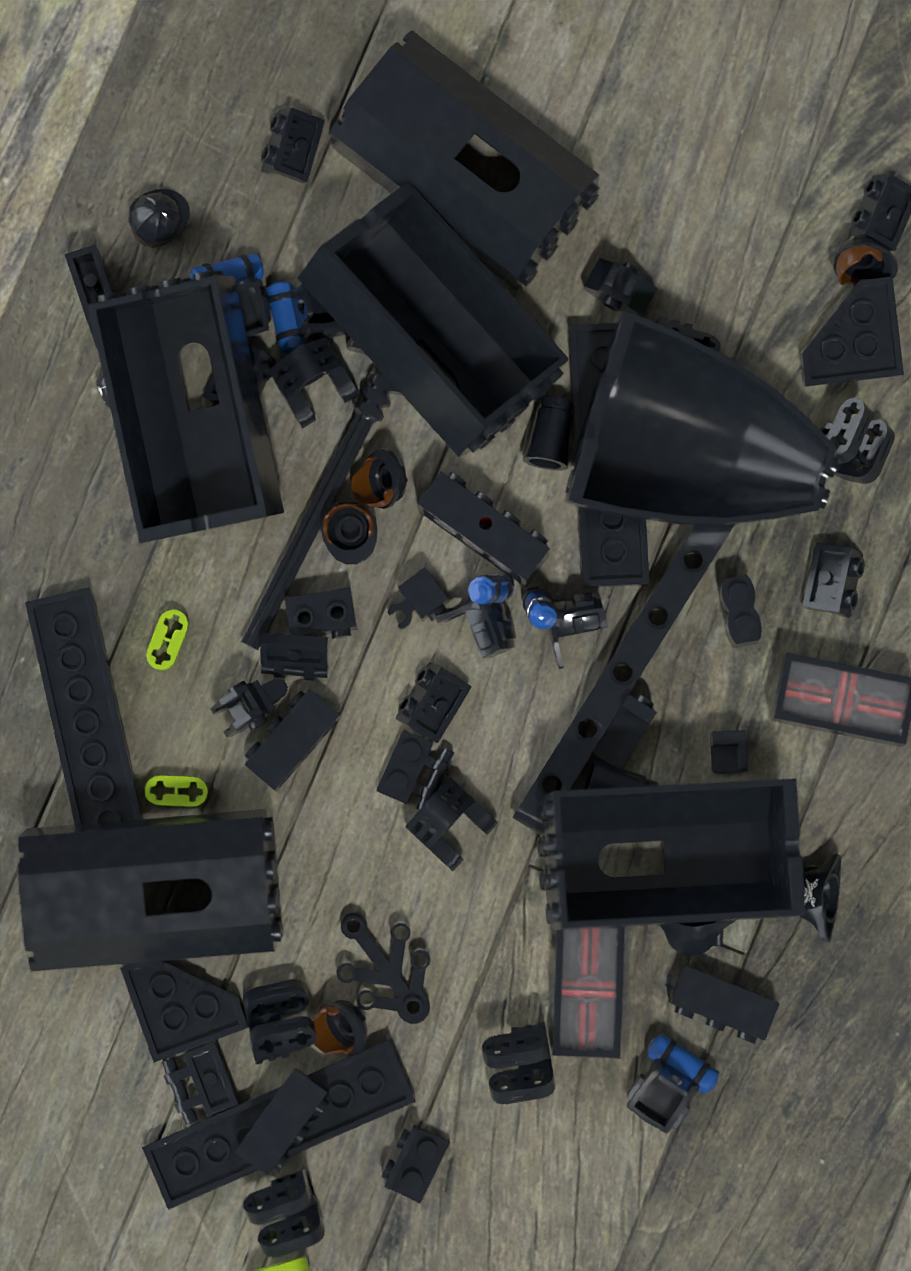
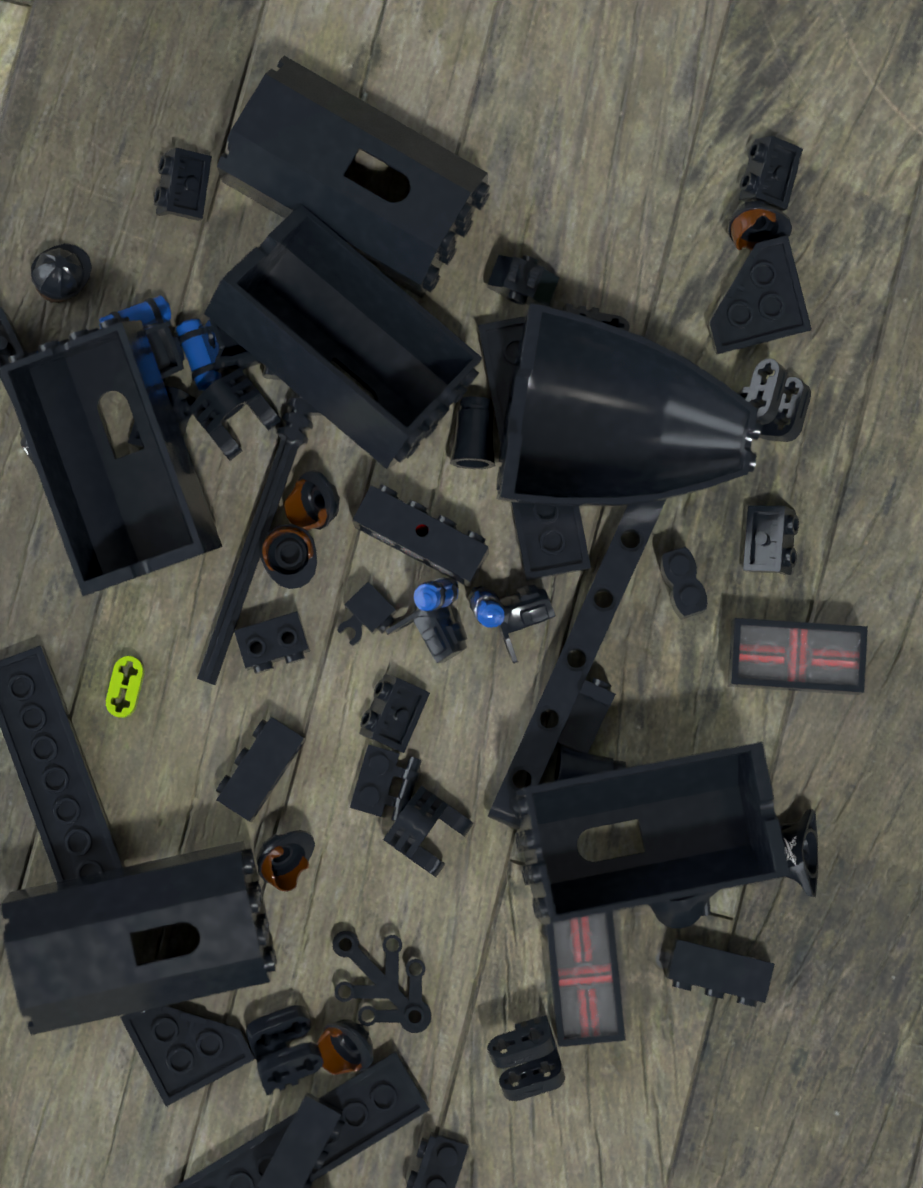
camera: 10 degrees left, 0 degrees up
(177, 783) = (153, 826): lime beam -> none
(210, 1080) = (223, 1114): black plate -> none
(250, 704) = (214, 739): black hinge -> none
(294, 655) = (251, 686): black plate -> none
(304, 832) = (284, 858): none -> black piece
(670, 1084) = (677, 1059): black piece -> none
(728, 751) = (690, 722): black panel -> none

